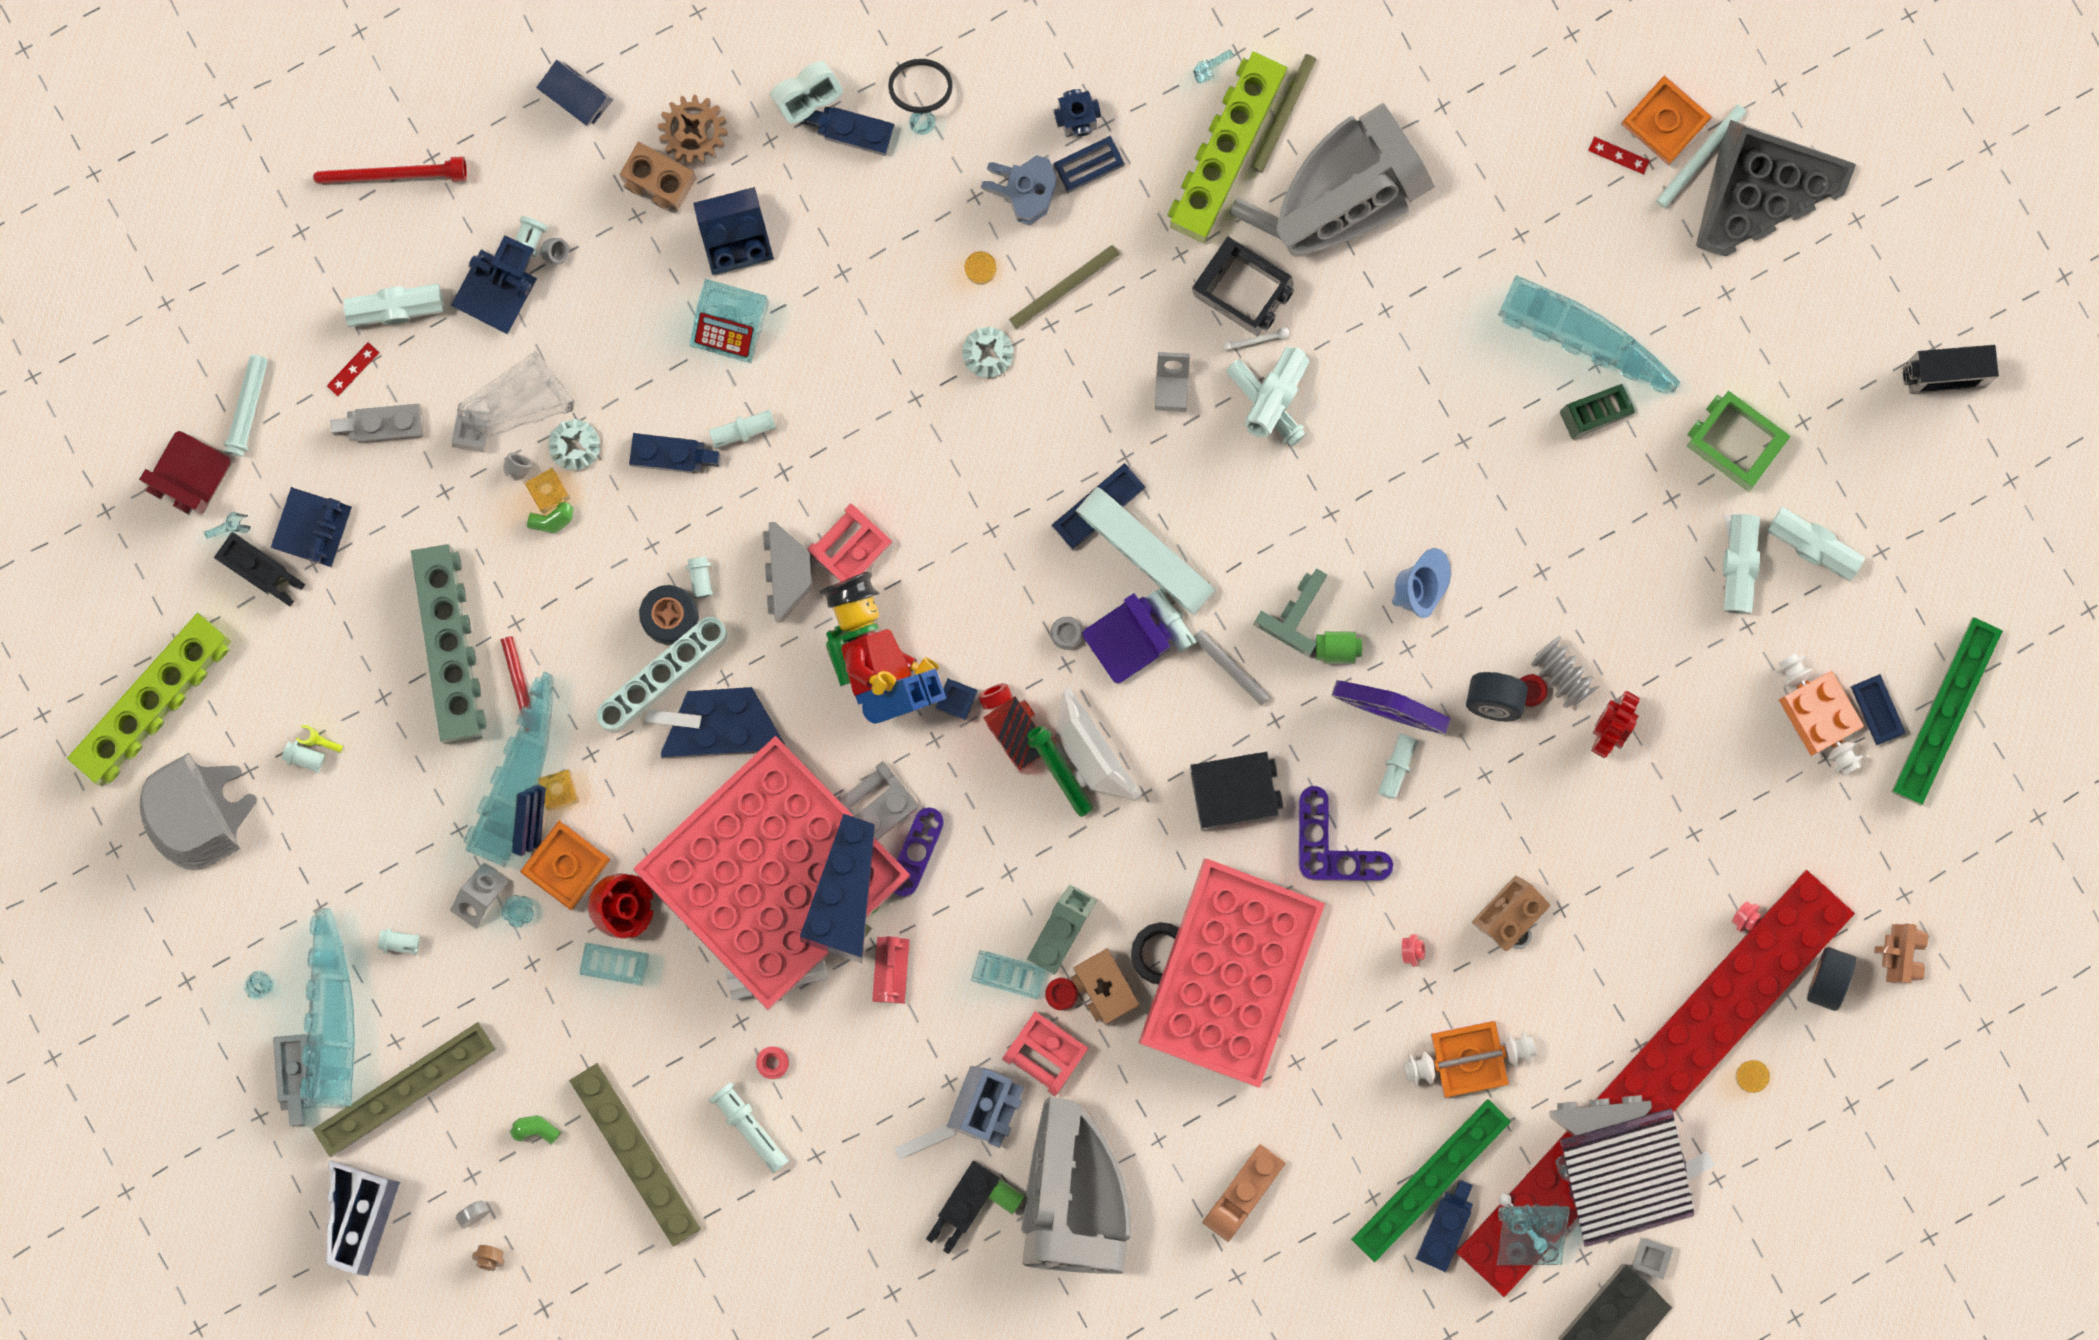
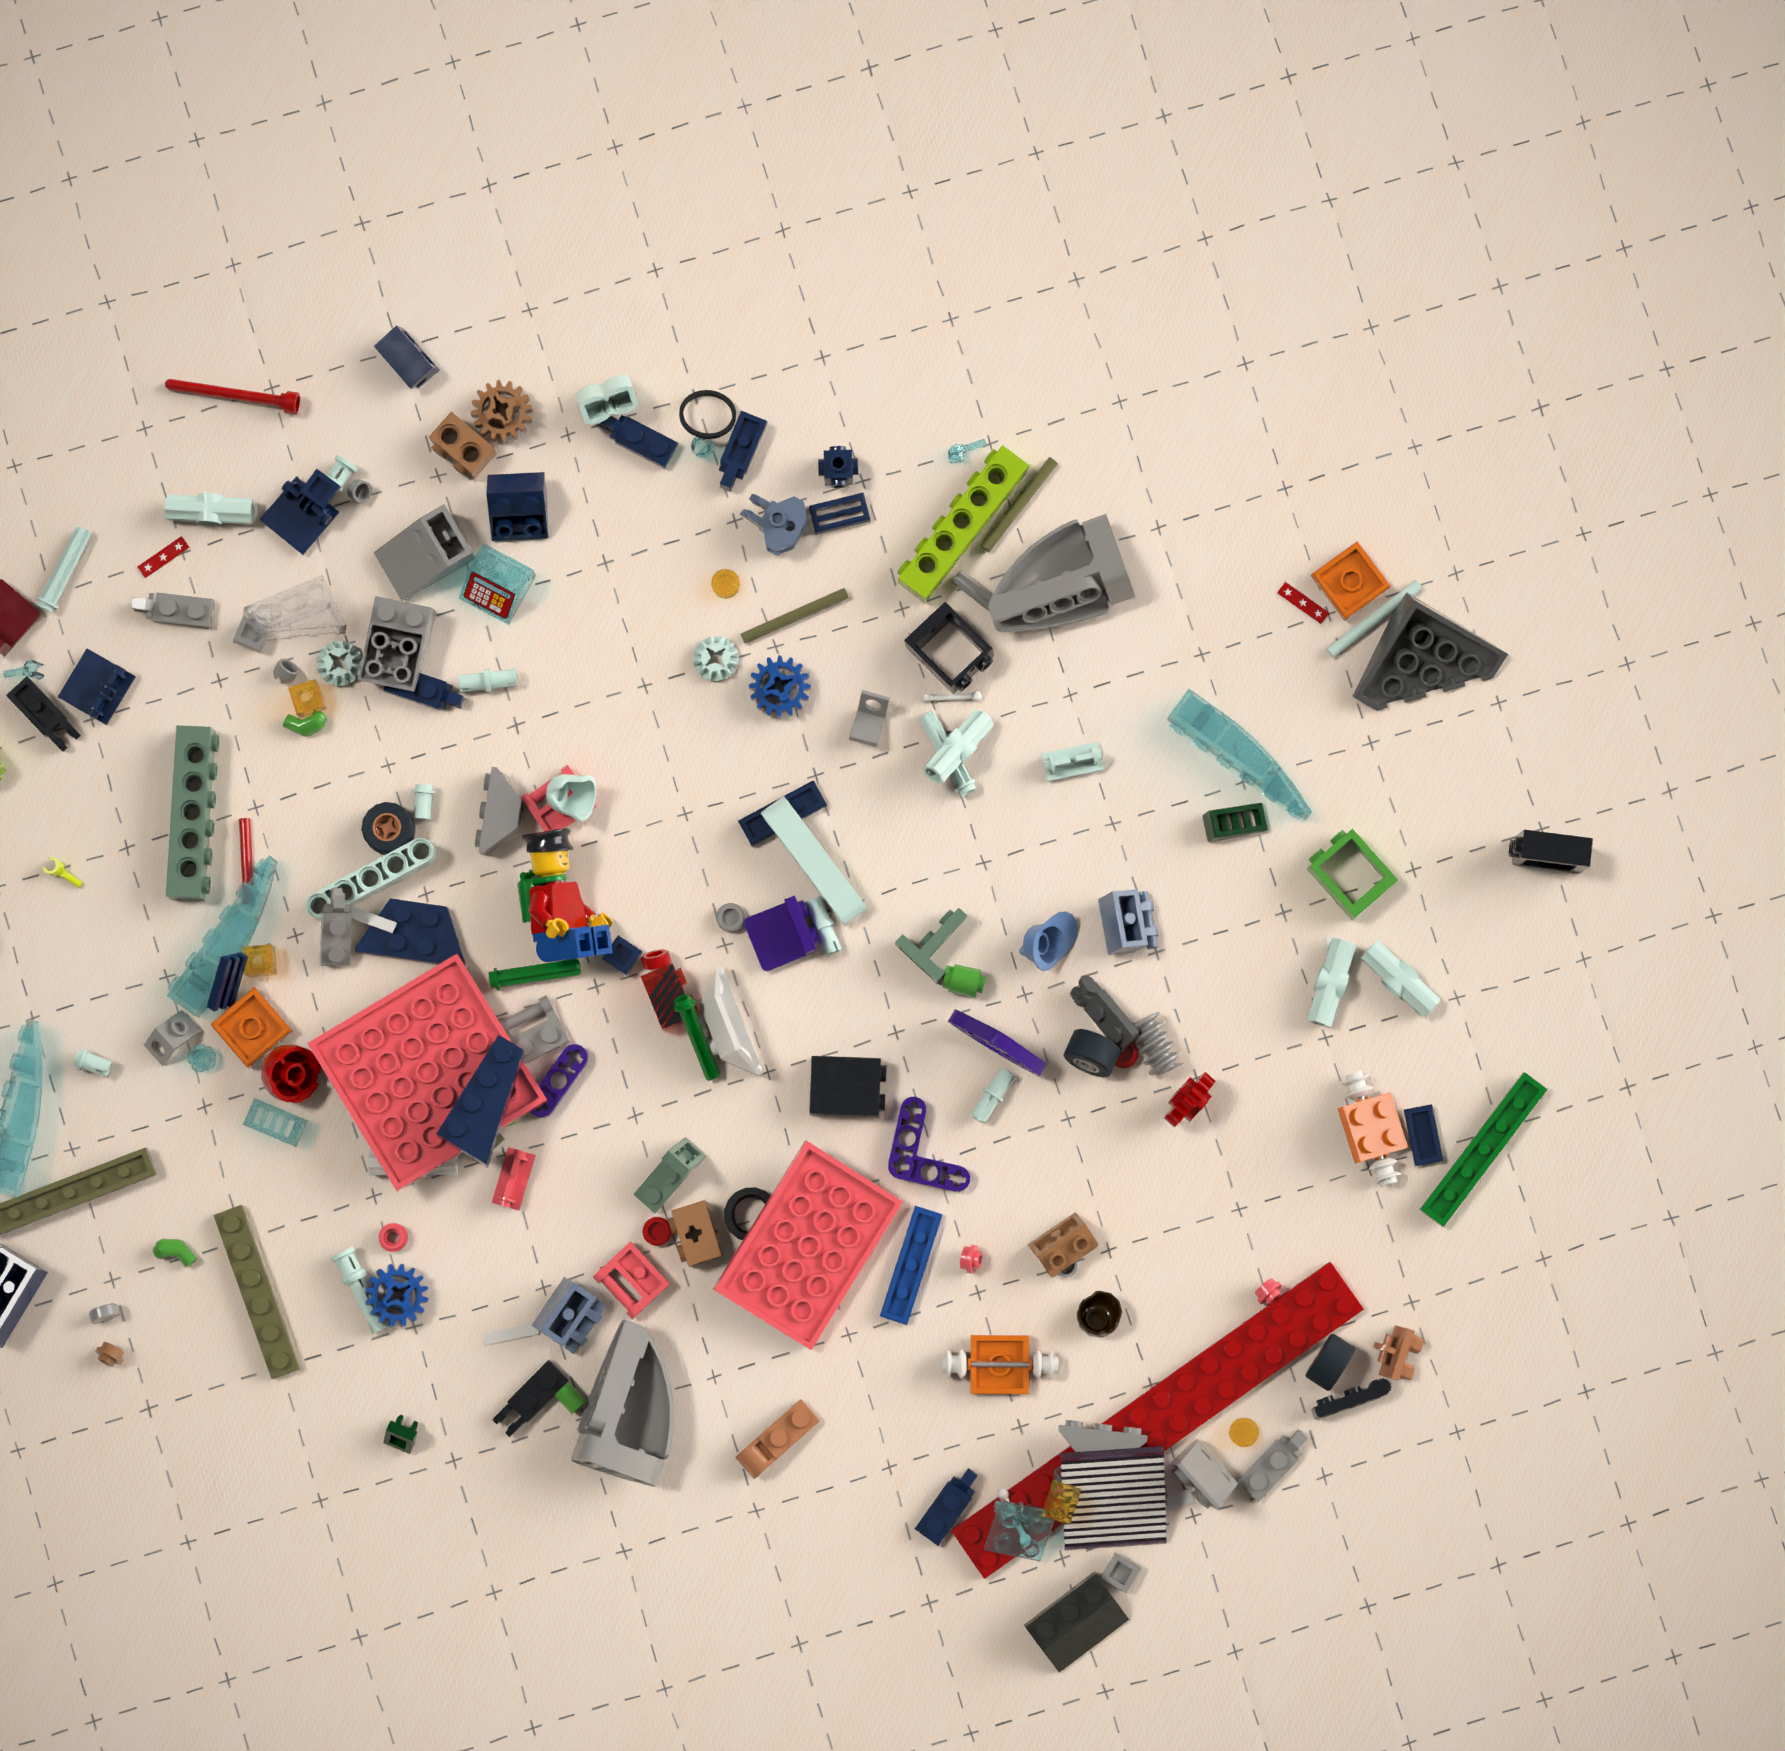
camera: 10 degrees right, 0 degrees up
(303, 756) = (45, 884): light aqua pin -> none
(633, 409) = (396, 643): none -> light grey slope
(636, 738) = (336, 930): none -> light grey hinge
(642, 303) = (424, 553): none -> light grey slope
(800, 1132) = (405, 1305): none -> blue gear
(829, 1278) = (401, 1436): none -> dark green tile
(864, 740) = (534, 973): none -> green axle
(873, 543) = (577, 805): none -> light aqua hair
(965, 115) = (741, 448): none -> dark blue hinge
(982, 966) = (610, 1213): clear light blue slope -> none
(1077, 360) = (767, 691): none -> blue gear
(1231, 667) = (867, 978): light grey bar -> none
(1348, 971) = (911, 1265): none -> blue tile
(1404, 382) = (1072, 761): none -> light aqua hinge
(1430, 1180) = (942, 1463): green plate -> none
(1500, 649) = (1104, 1012): none -> dark grey hinge
(1504, 544) = (1128, 921): none -> sand blue brick
(1567, 980) = (1099, 1314): none -> dark brown hair
(1572, 1193) = (1061, 1502): none -> clear yellow plate
(1721, 1131) = (1205, 1474): none -> light grey slope
(1791, 1105) = (1272, 1465): none -> light grey hinge
(1864, 1013) = (1353, 1397): none -> black hinge

